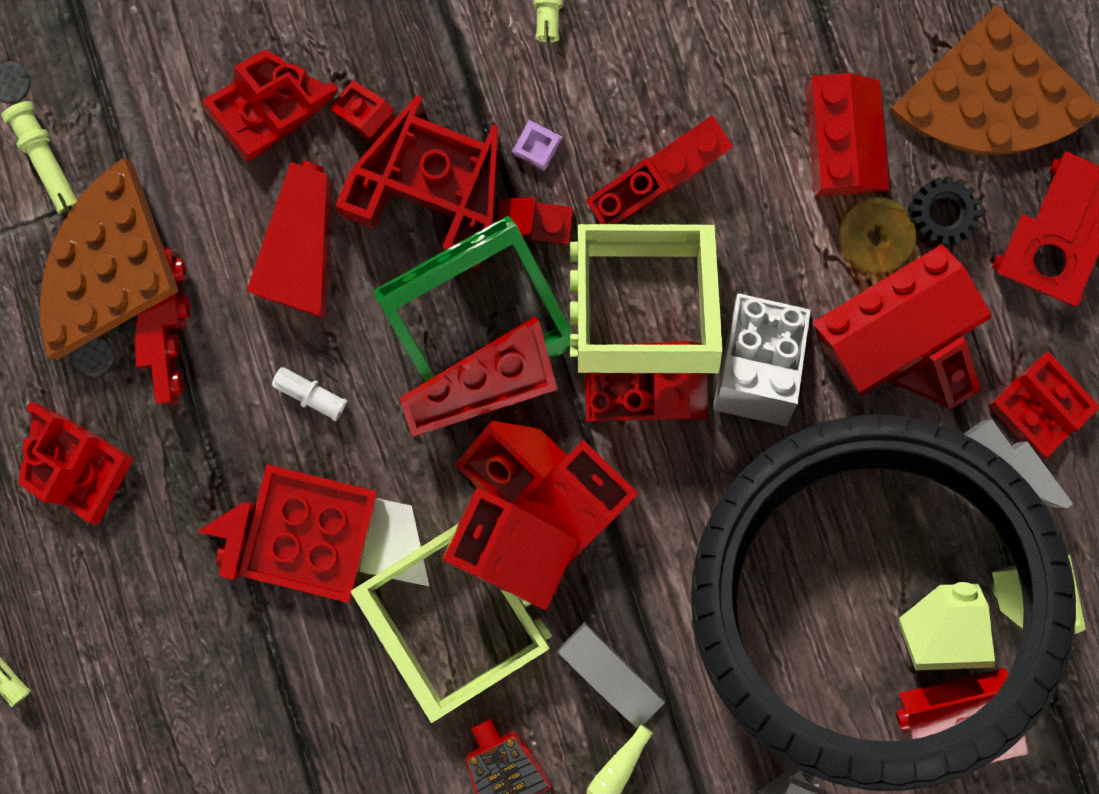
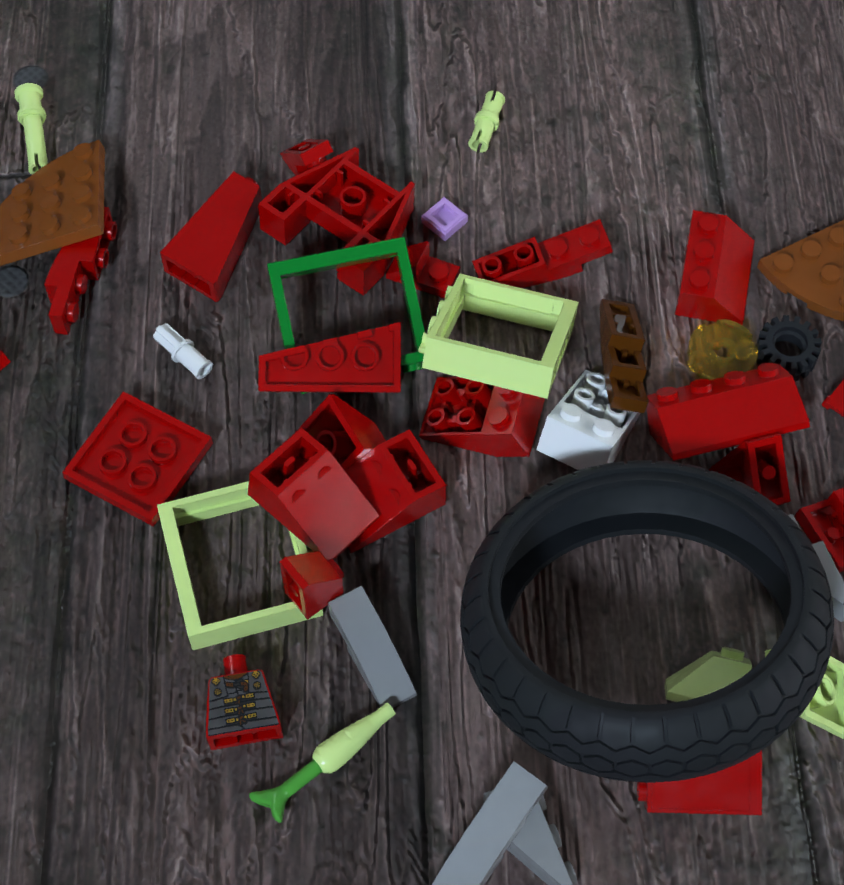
camera: 10 degrees right, 25 degrees down
(235, 527) = (69, 434): red slope -> none
(265, 103) = (230, 136): red slope -> none
(392, 538) = (210, 475): white sticker -> none
(540, 645) = (311, 581): none -> red slope
(774, 274) = (622, 356): none -> reddish brown slope

